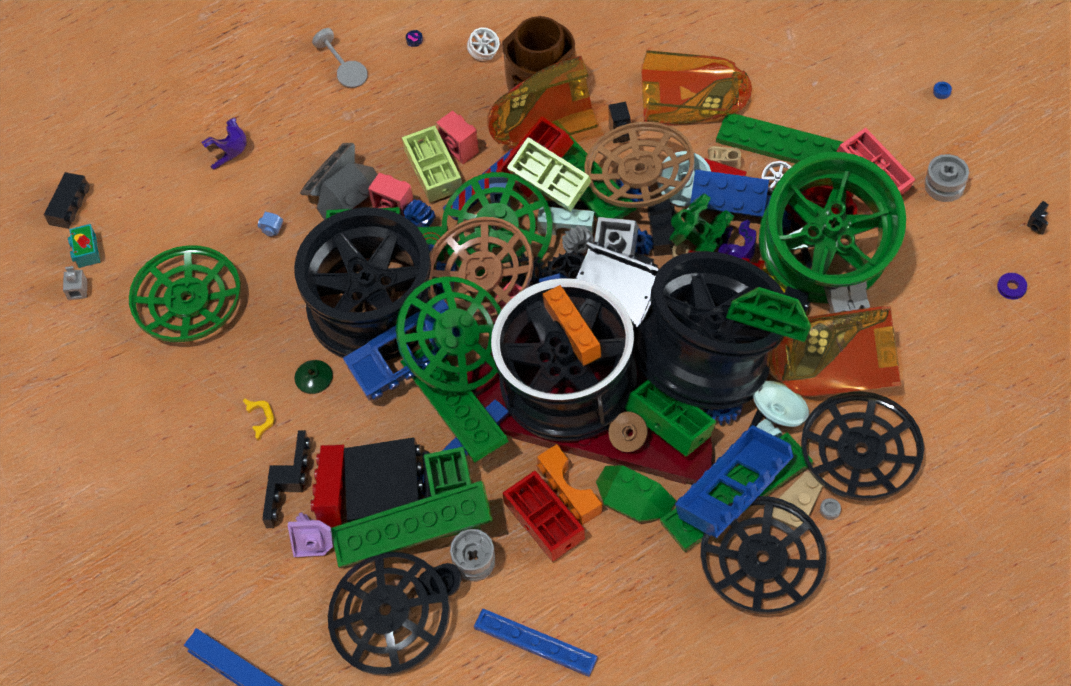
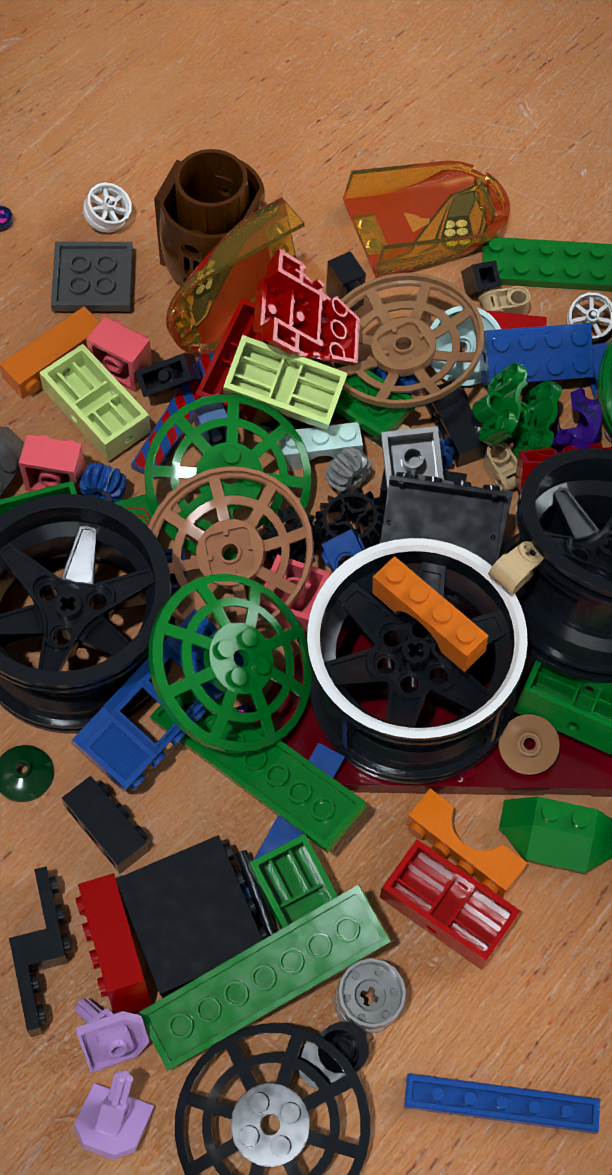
camera: 25 degrees left, 5 degrees up
(294, 584) = (112, 1120): none -> lavender piece
(351, 416) = (106, 823): none -> black brick
(393, 133) = (23, 367): none -> orange brick
(459, 86) = (92, 276): none -> dark grey plate
(483, 156) = (168, 375): none -> black brick
(573, 135) = (301, 317): none -> red wedge
(637, 310) = (516, 567): none -> tan piece
(712, 137) = (481, 277): none -> black brick

